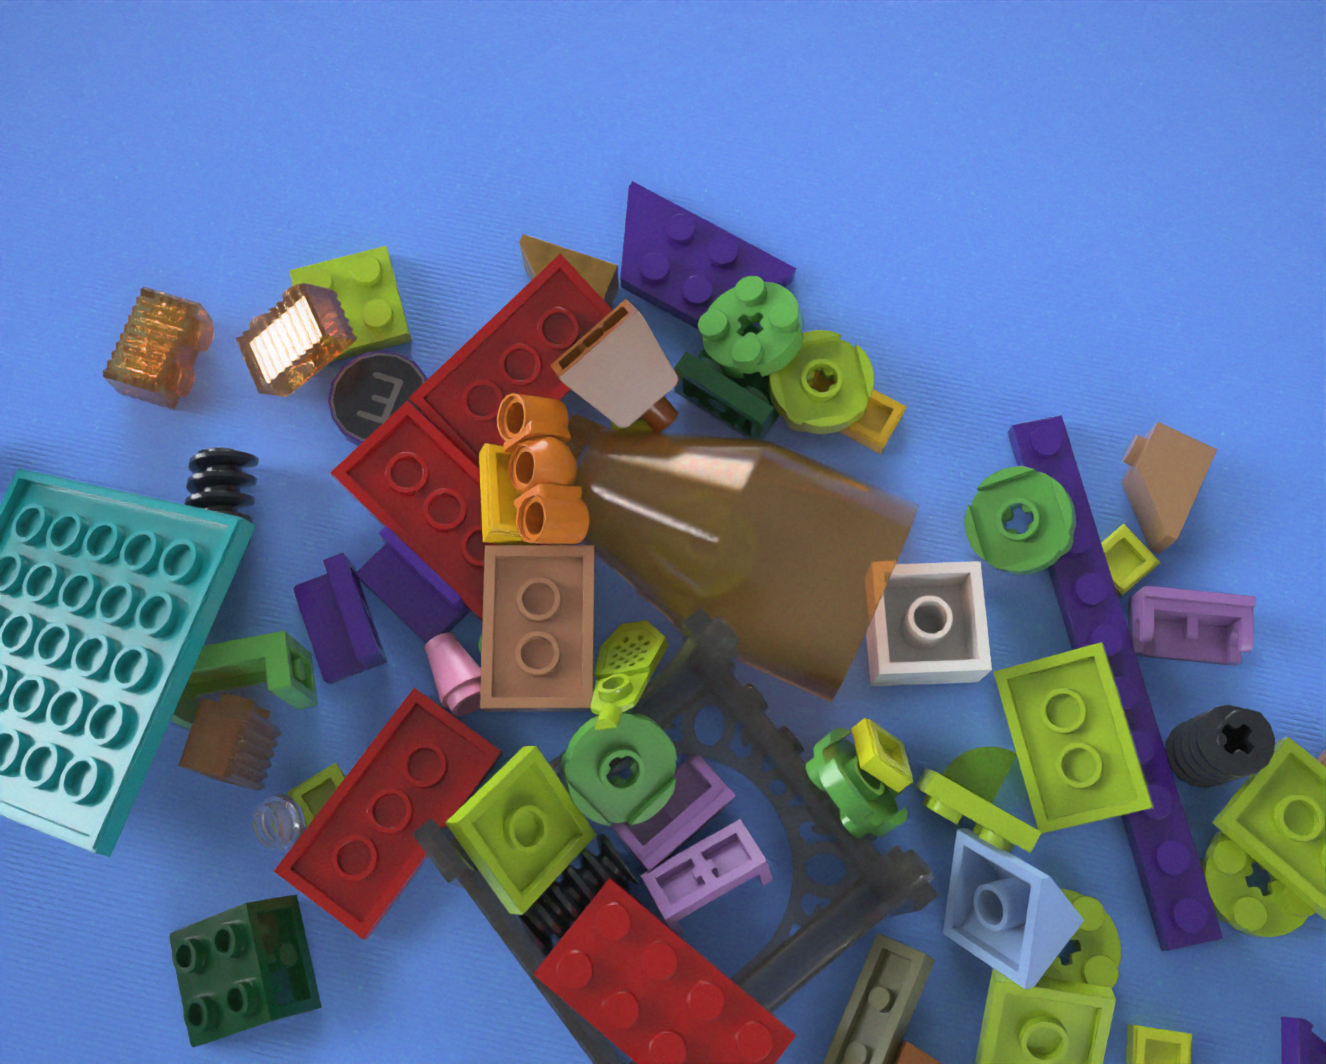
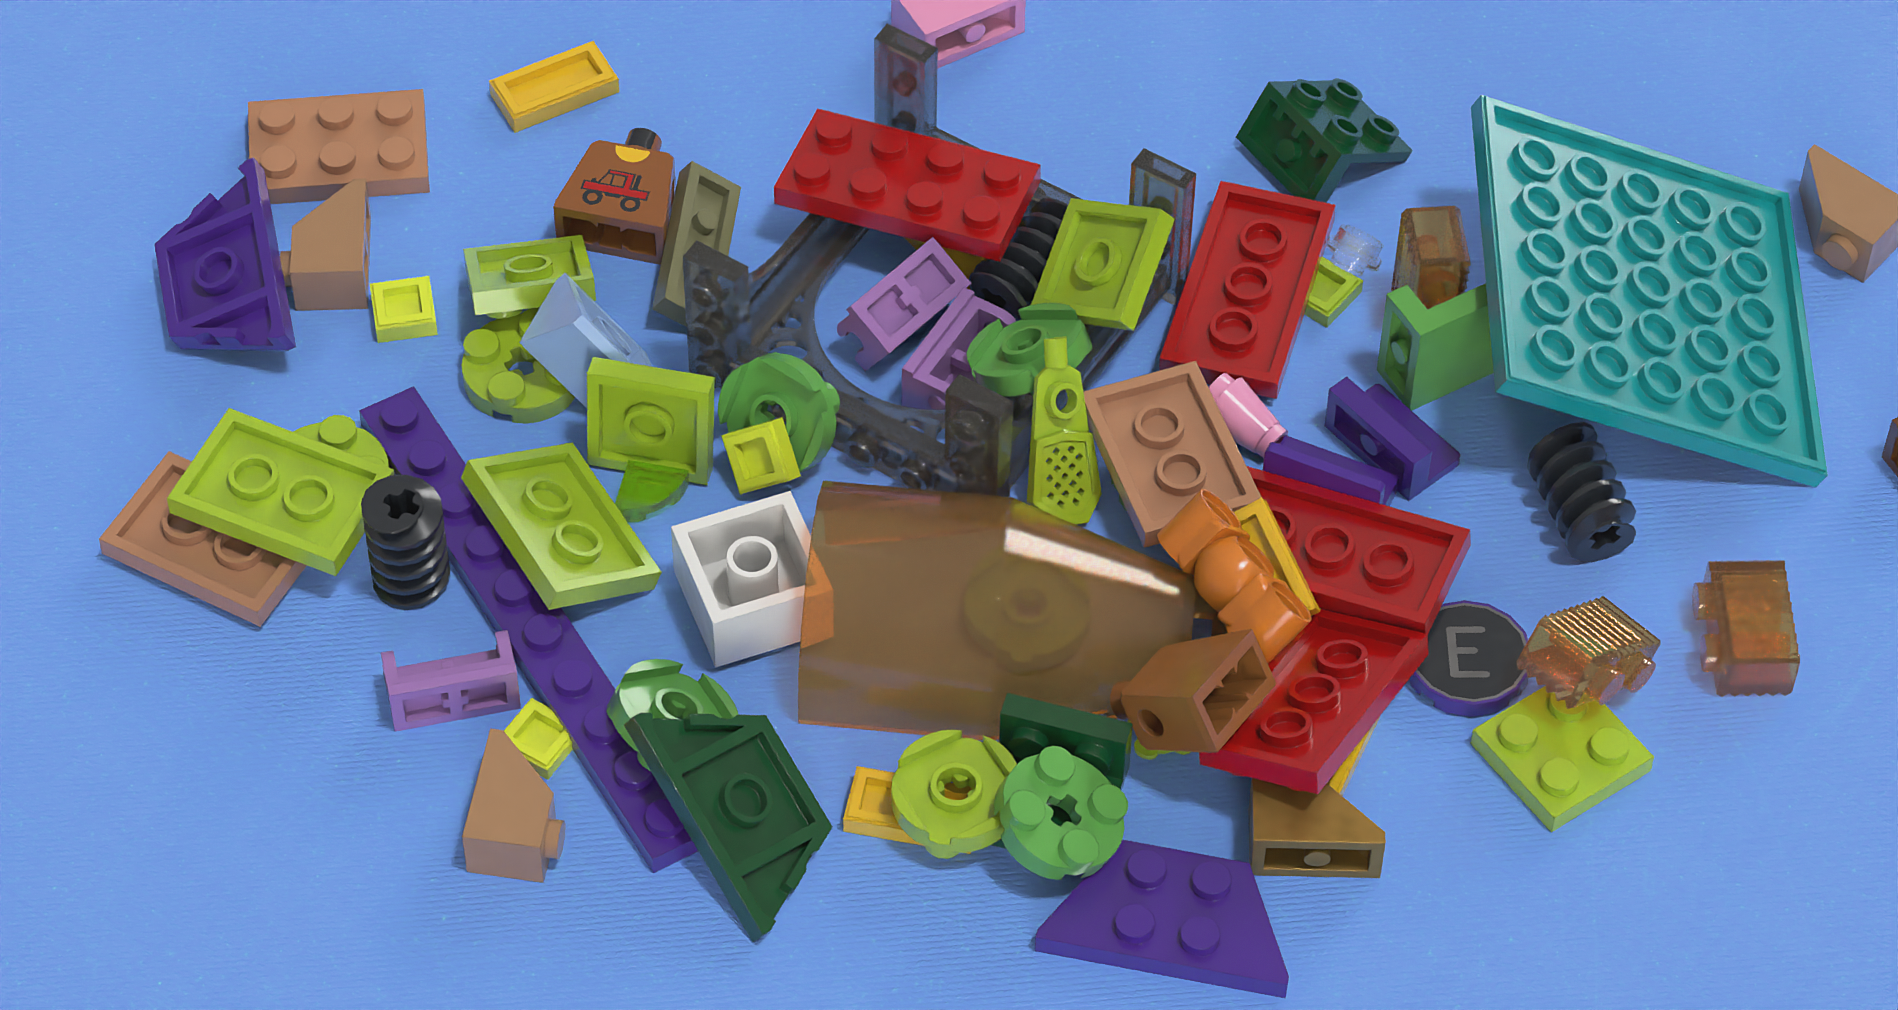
camera: 160 degrees right, 20 degrees down
(994, 424) = (737, 804): none -> dark green wing

